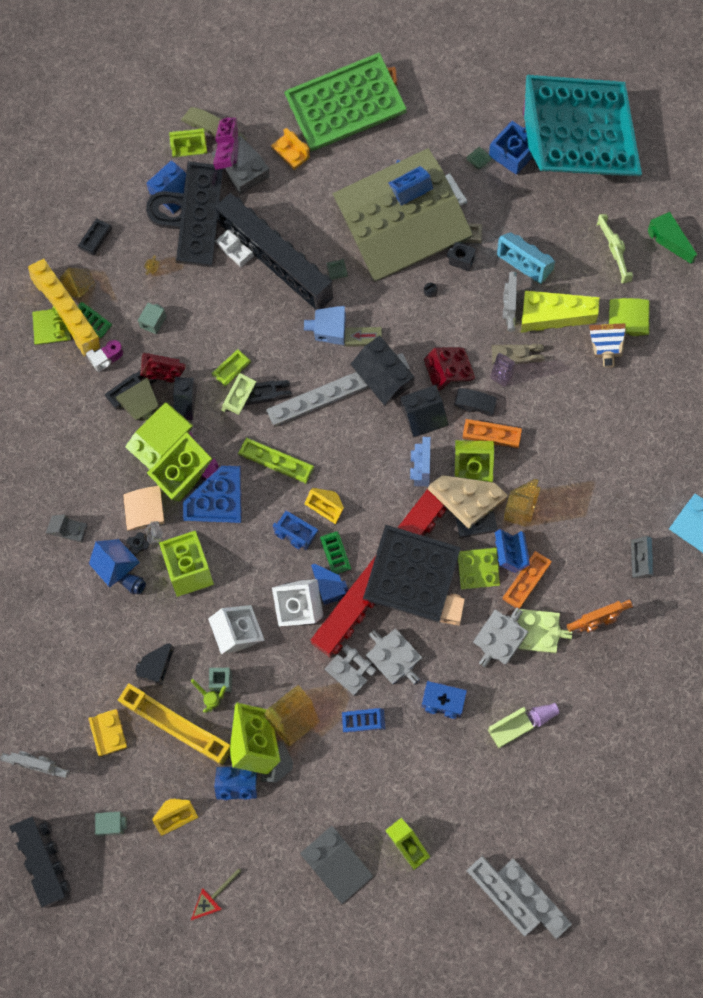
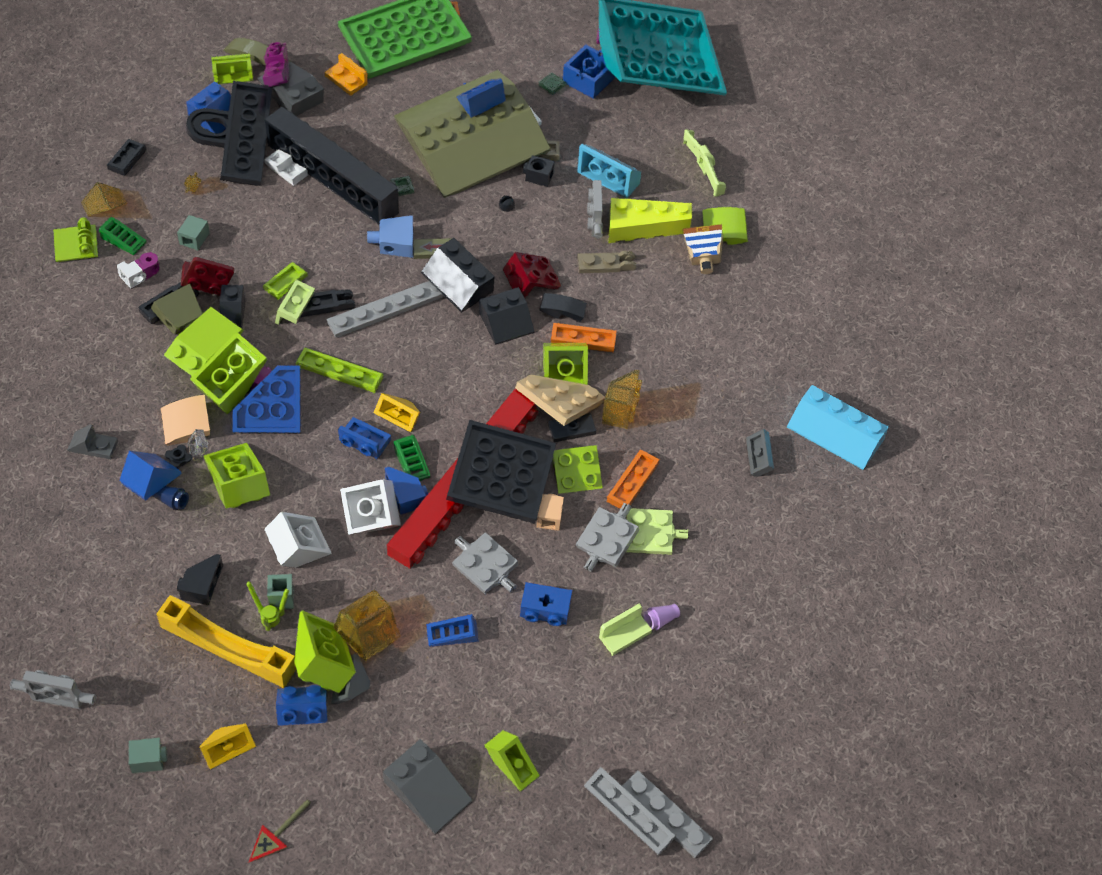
camera: 15 degrees left, 15 degrees down
(42, 860) = (60, 798): black wedge -> none
(77, 324) = (112, 243): yellow arch -> none
(107, 732) = (143, 658): yellow plate -> none
(346, 674) = (429, 584): light grey plate -> none
(421, 460) = (507, 363): medium blue plate -> none
(502, 370) = (591, 276): clear purple slope -> none
(512, 550) = (614, 450): blue bracket -> none
(603, 615) = (718, 509): orange plate -> none
(669, 235) = (763, 151): green slope -> none

